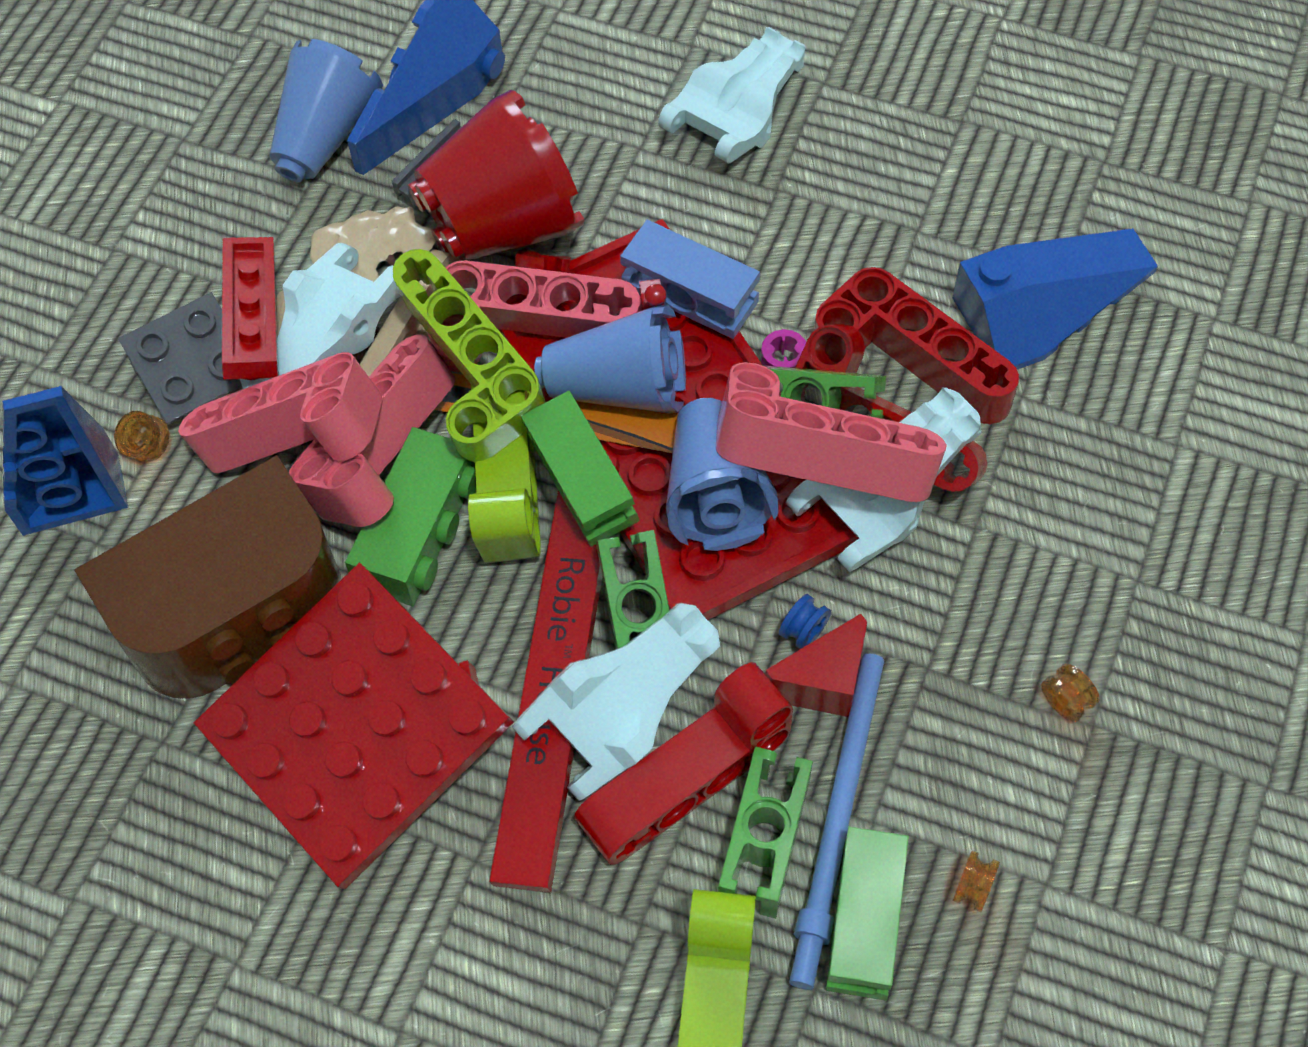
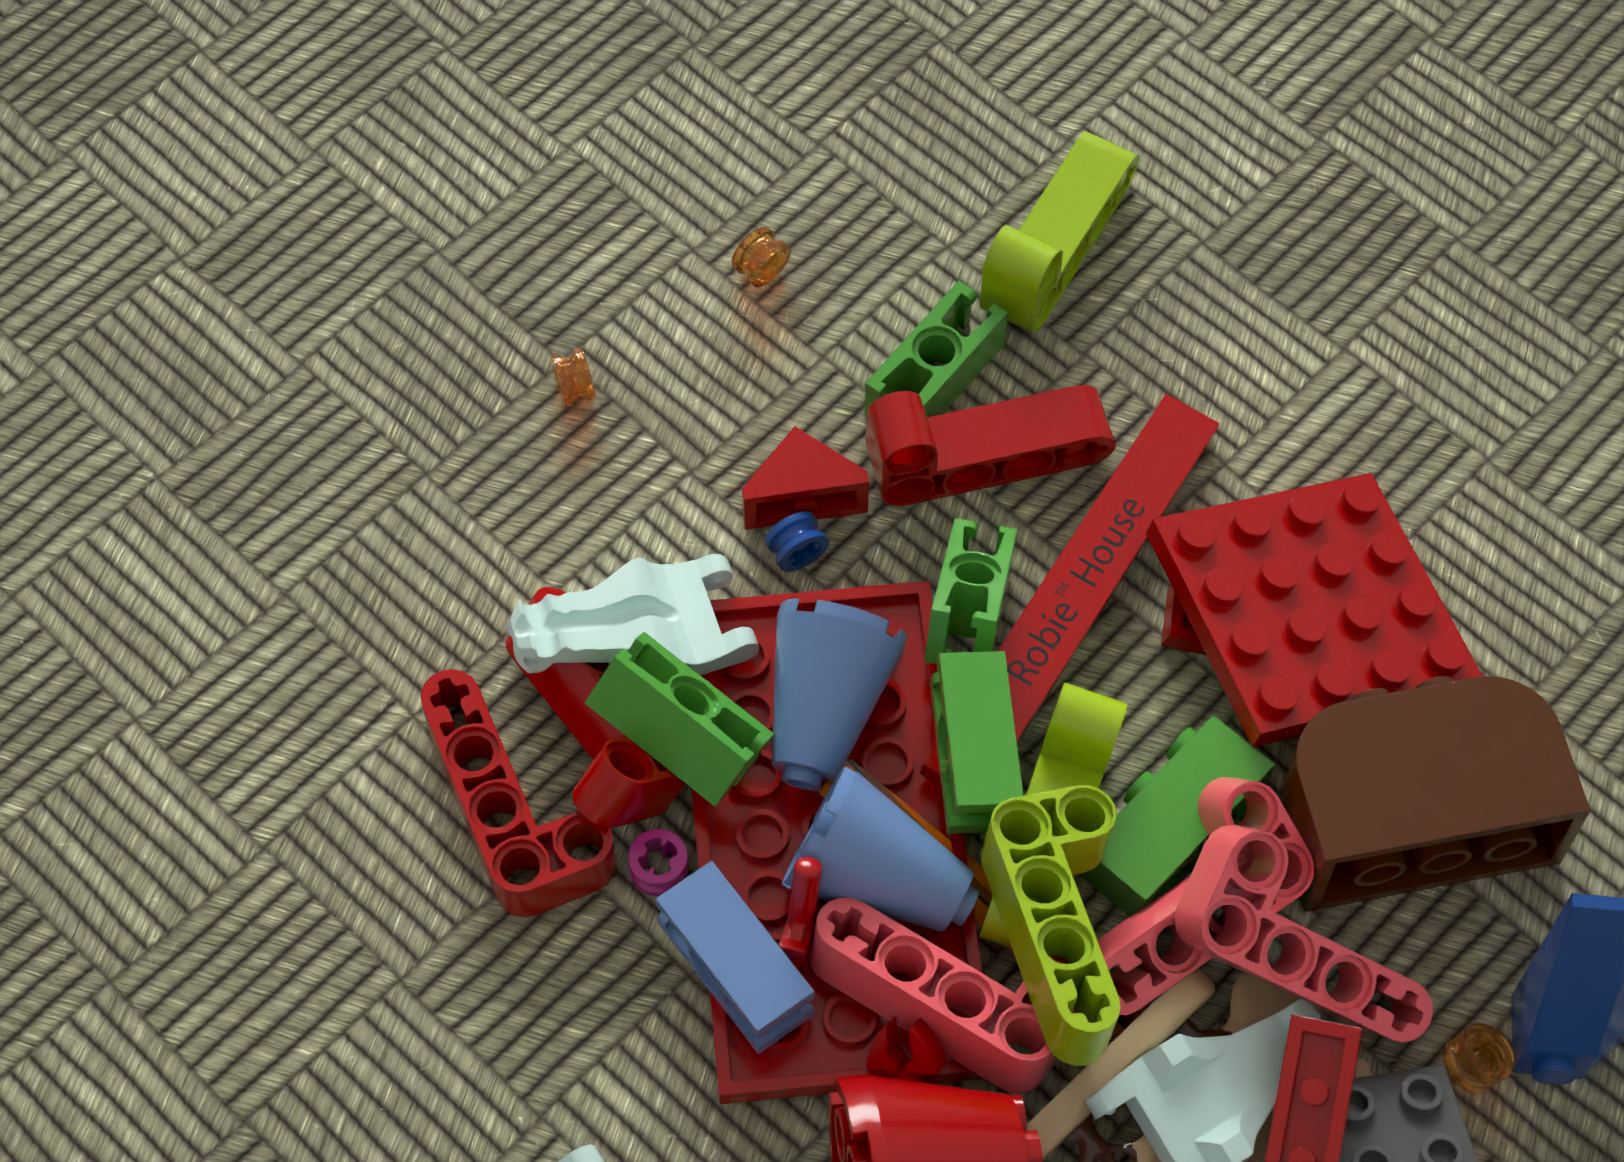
camera: 160 degrees left, 0 degrees up
(616, 699) = (1034, 502): light aqua animal -> none
(815, 922) = (923, 287): medium blue bar -> none
(823, 442) = (703, 612): coral beam -> none
(867, 913) = (875, 265): piece -> none
(1043, 291) = (315, 815): blue wedge -> none

